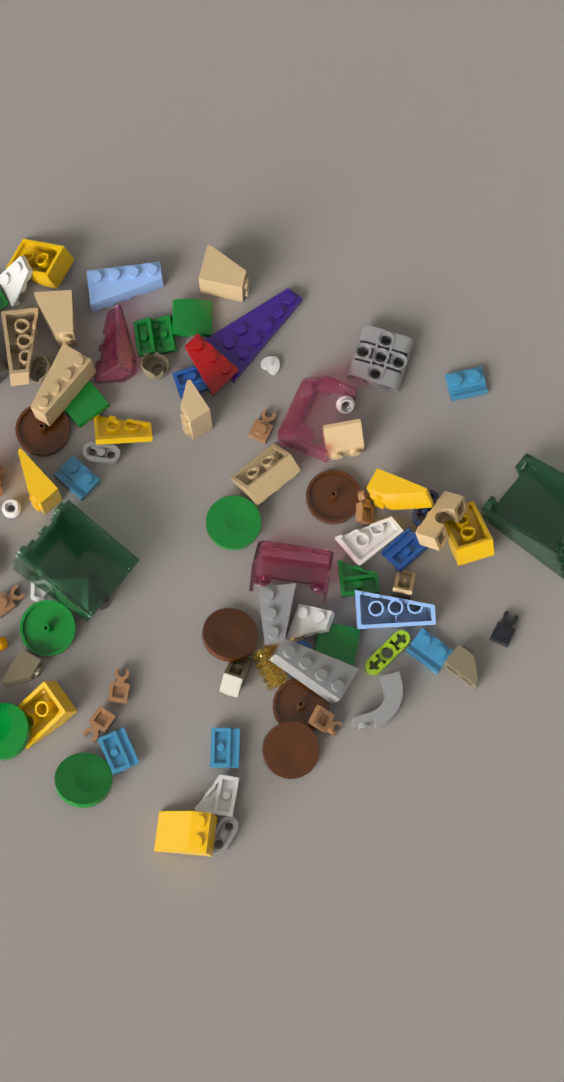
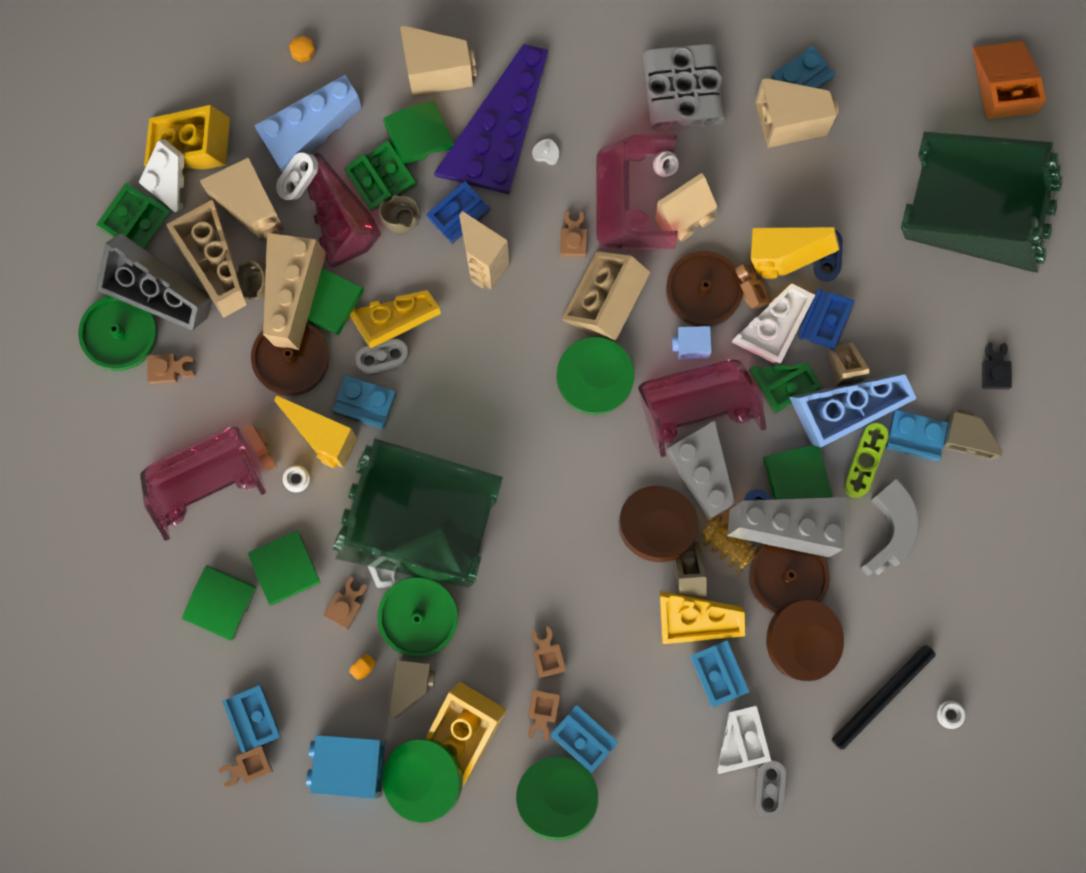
camera: 25 degrees left, 5 degrees up
(101, 314) = (297, 174): none -> white plate
(141, 233) = (302, 49): none -> light orange tile
(186, 832) = (721, 810): yellow slope -> none
(211, 364) = (473, 182): red wing -> none
(226, 706) = (698, 619): none -> yellow wing
(307, 528) = (692, 342): none -> light blue brick
(309, 621) = (751, 462): white wing -> none
(323, 720) = (830, 583): medium nougat plate -> none
(326, 809) = (883, 697): none -> black axle
(365, 833) = (959, 714): none -> white plate
(432, 531) = (858, 242): tan arch -> none
(445, 405) = (793, 112): none -> tan slope
(470, 537) = (894, 265): yellow slope -> none

